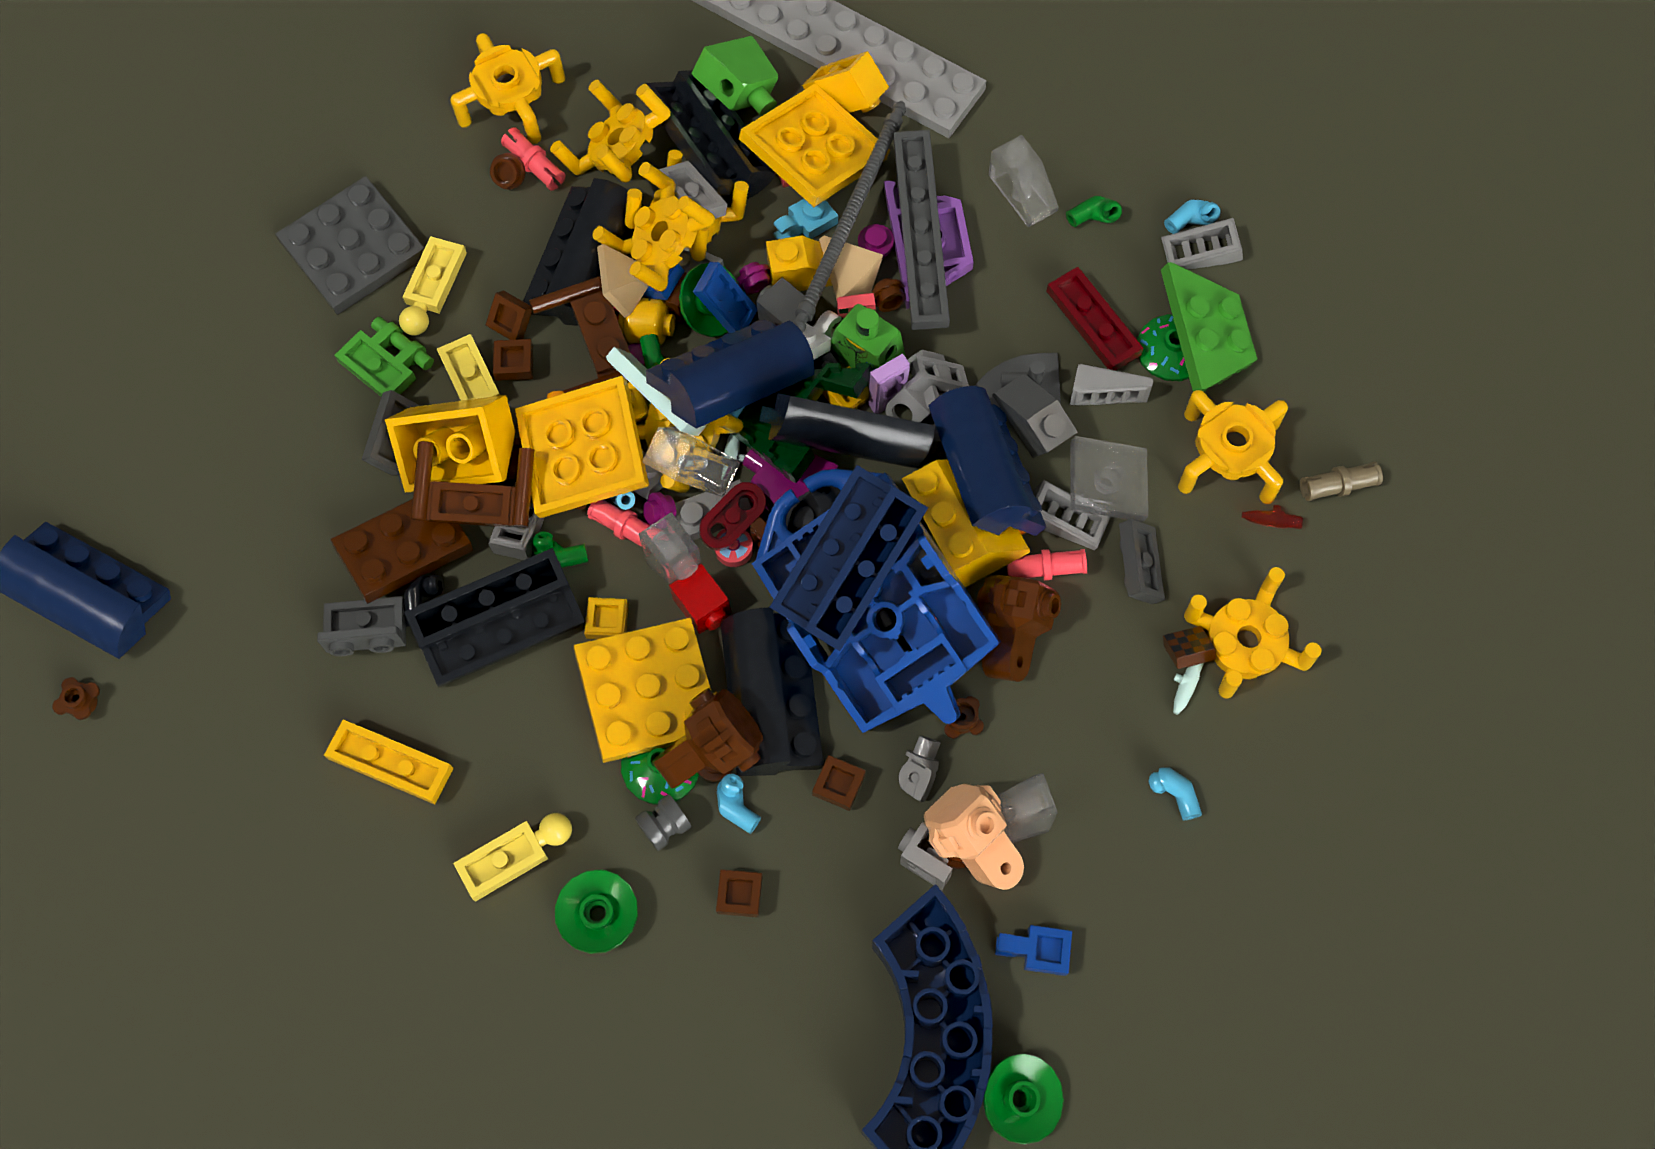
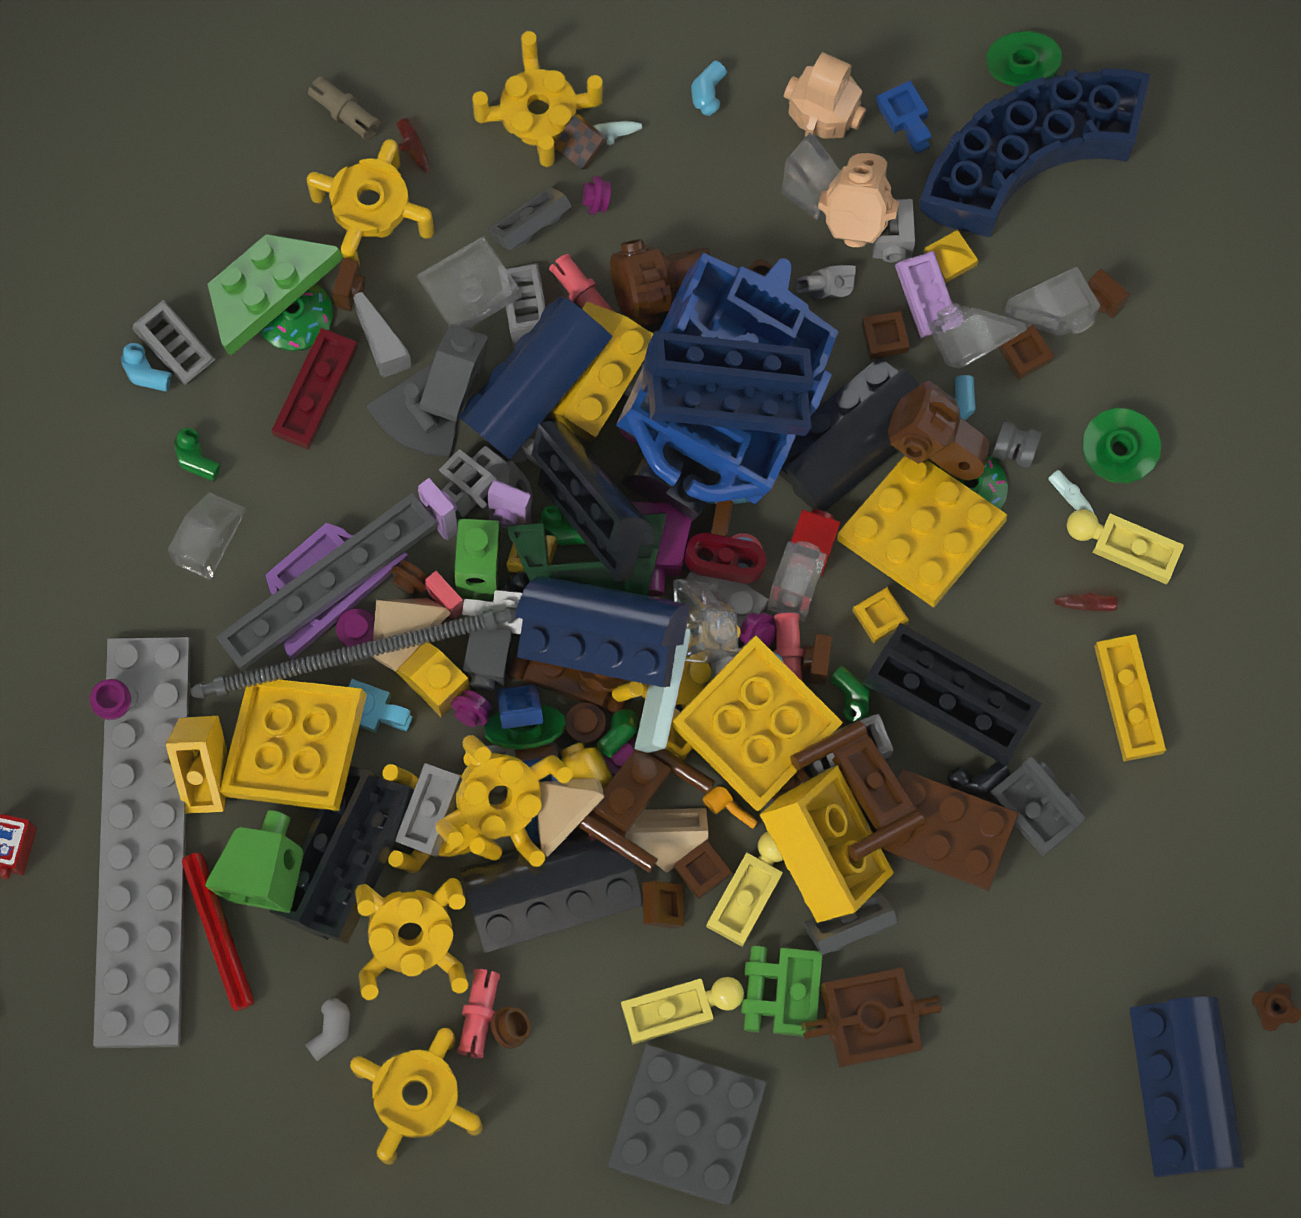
camera: 130 degrees left, 5 degrees up
(314, 401) = (871, 1017): none -> reddish brown plate
(491, 790) = (1088, 602): none -> clear red helmet
(559, 356) = (669, 833): none -> tan slope
(590, 844) = (1069, 491): none -> light aqua helmet
(596, 69) = (335, 1028): none -> light grey arm
(604, 541) = (817, 659): none -> reddish brown plate
(682, 344) = (585, 723): none -> reddish brown plate
(706, 36) = (217, 933): none -> red axle
(741, 1002) = (1108, 293): none -> reddish brown plate
(761, 950) = (1056, 305): none -> clear slope
(785, 854) = (970, 332): none -> clear slope
(851, 844) = (923, 289): none -> lavender plate
(874, 895) = (953, 255): none -> yellow tile
(924, 331) = (440, 507): none -> lavender plate
(933, 48) = (110, 699): none -> magenta plate
(1095, 880) = (825, 99): none -> light nougat piece
(1128, 628) = (596, 195): none -> magenta plate
(1170, 390) = (347, 284): none -> reddish brown plate

